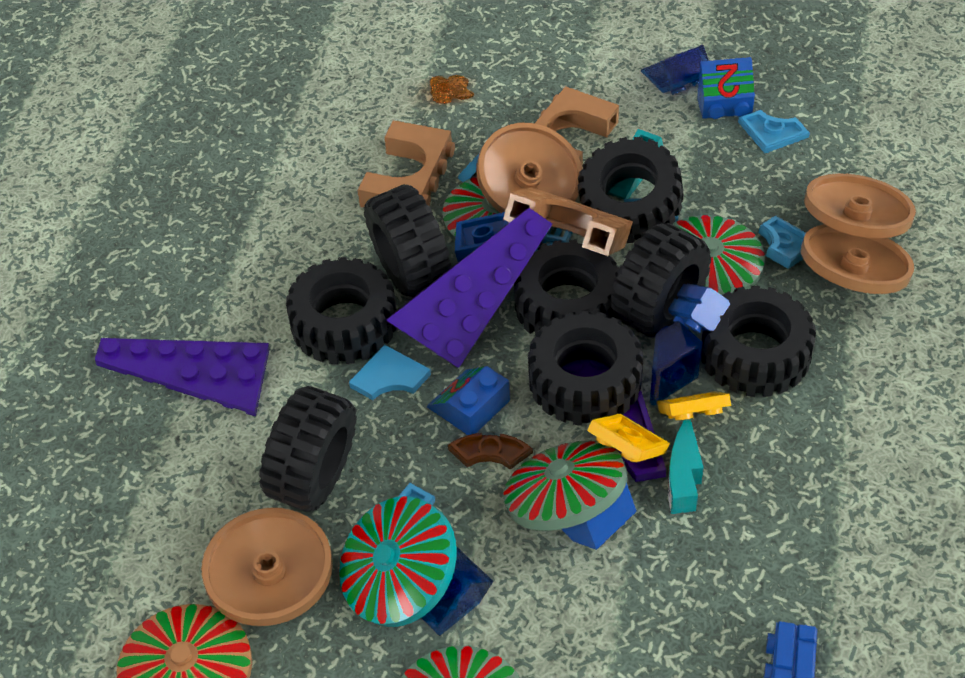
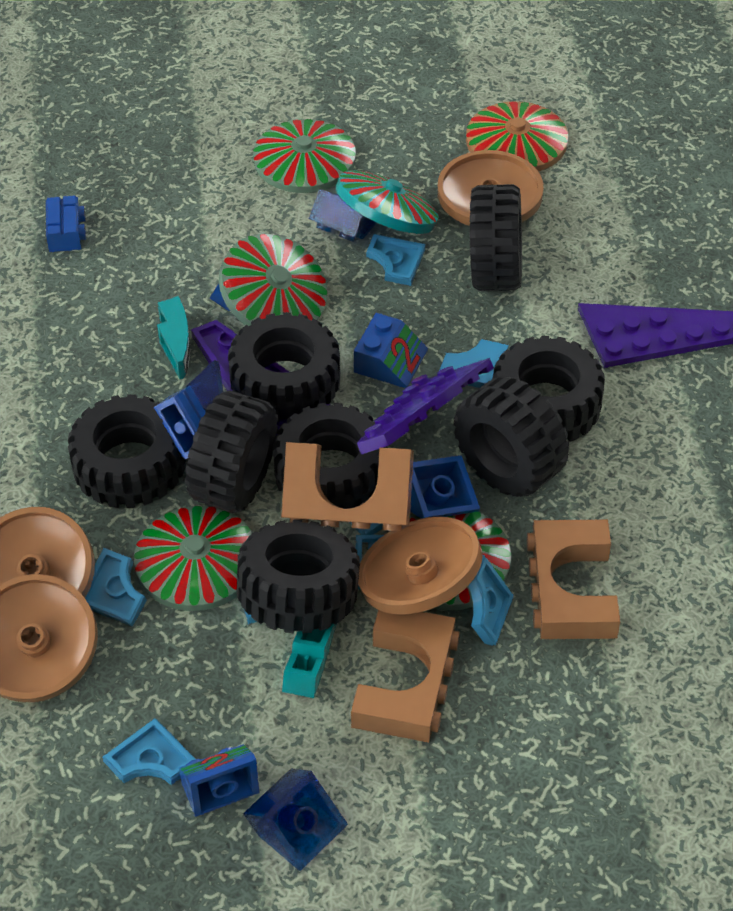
camera: 160 degrees right, 0 degrees up
(445, 89) = (584, 725): clear orange plate -> none
(493, 448) = (350, 325): reddish brown tile -> none
(628, 437) = (223, 316): yellow plate -> none
(683, 407) = (172, 370): yellow plate -> none

